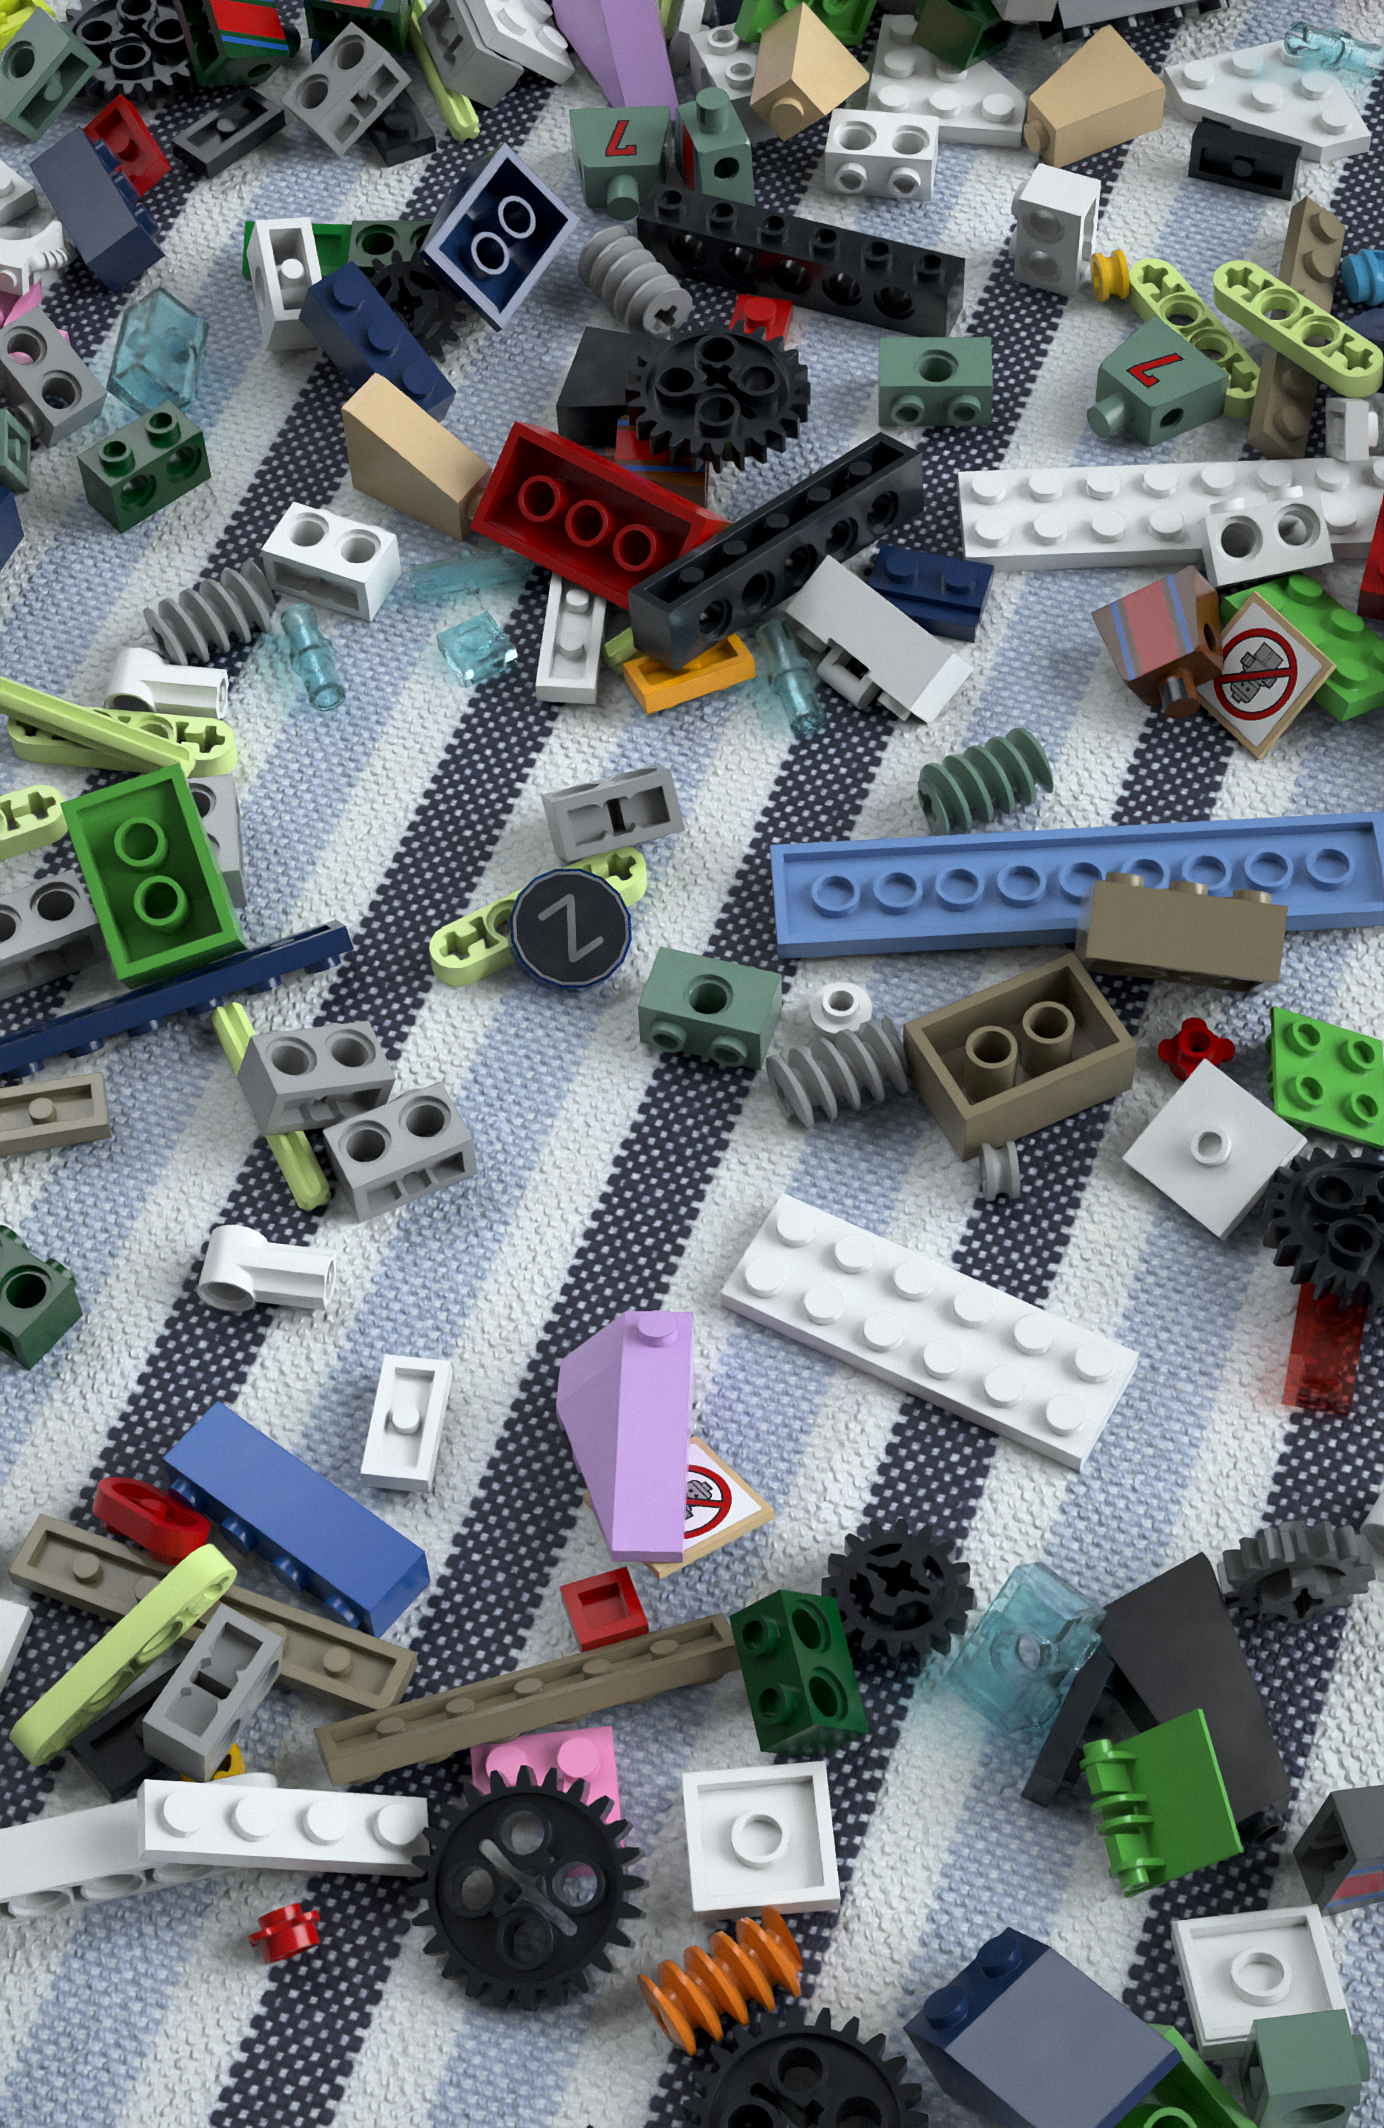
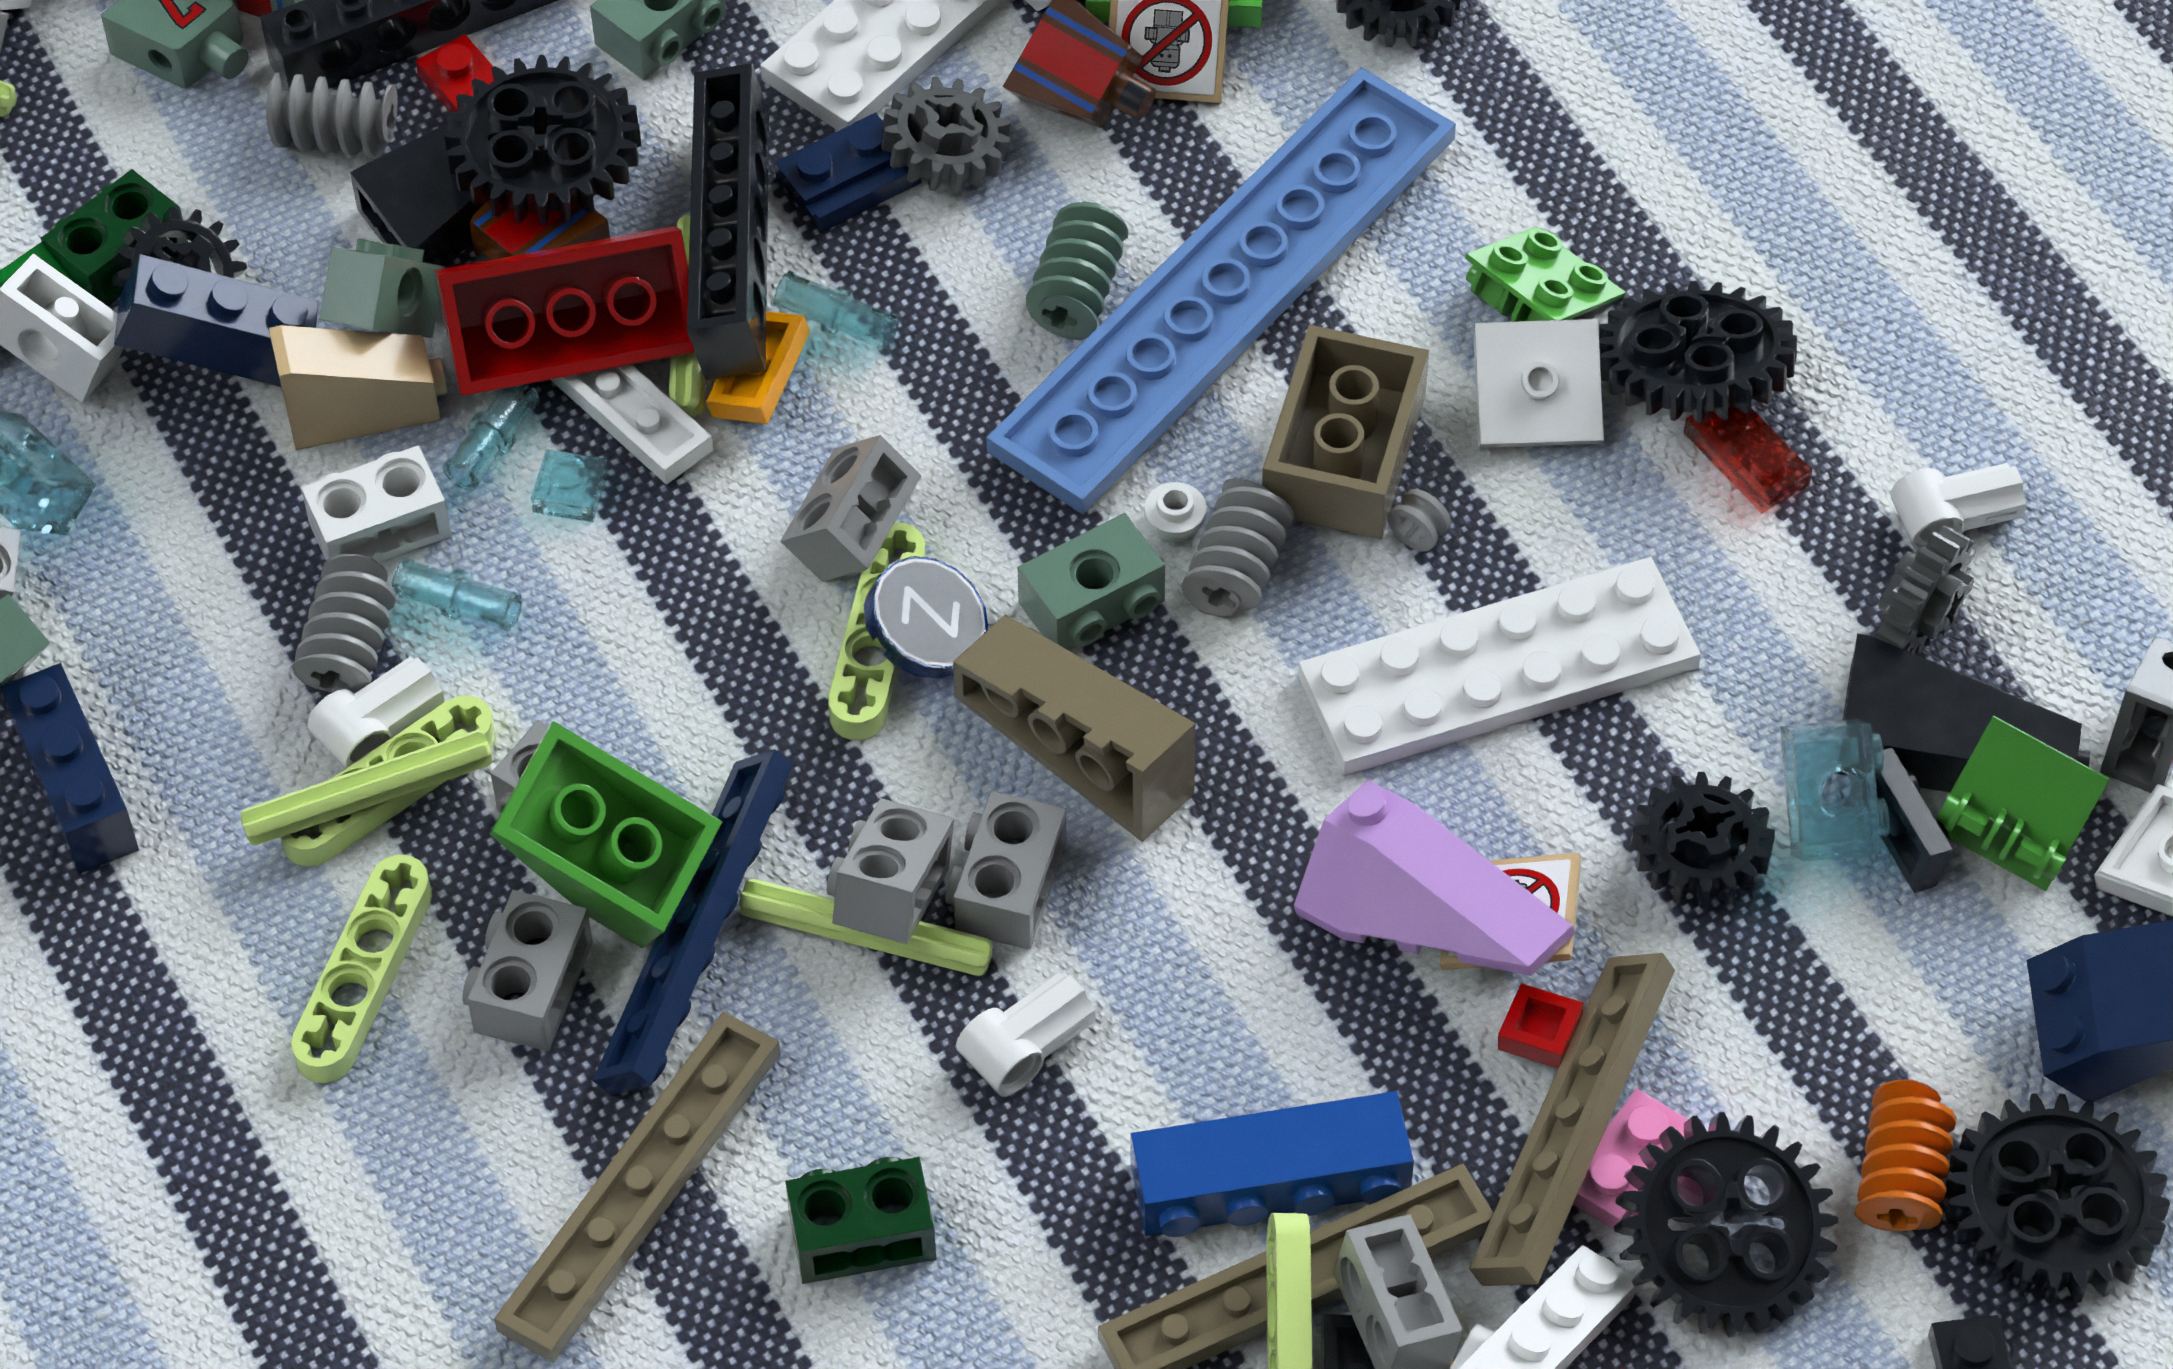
camera: 50 degrees left, 0 degrees up
(144, 466) = (123, 564): dark green brick -> none
(150, 1518) = (1199, 1248): red plate -> none
(406, 1423) = (1255, 1036): white plate -> none
(484, 400) = (381, 289): none -> sand green brick
(497, 234) = (185, 150): dark blue slope -> none
(568, 1097) = (1081, 724): none -> dark tan wedge
(760, 1841) = (1812, 1064): white plate -> none
(798, 1674) = (1718, 937): dark green brick -> none
(858, 622) = (895, 225): white piece -> none
(1016, 617) = (946, 135): none -> dark grey gear
(1181, 934) = (1358, 253): dark tan brick -> none
(1194, 1034) = (1442, 346): red plate -> none

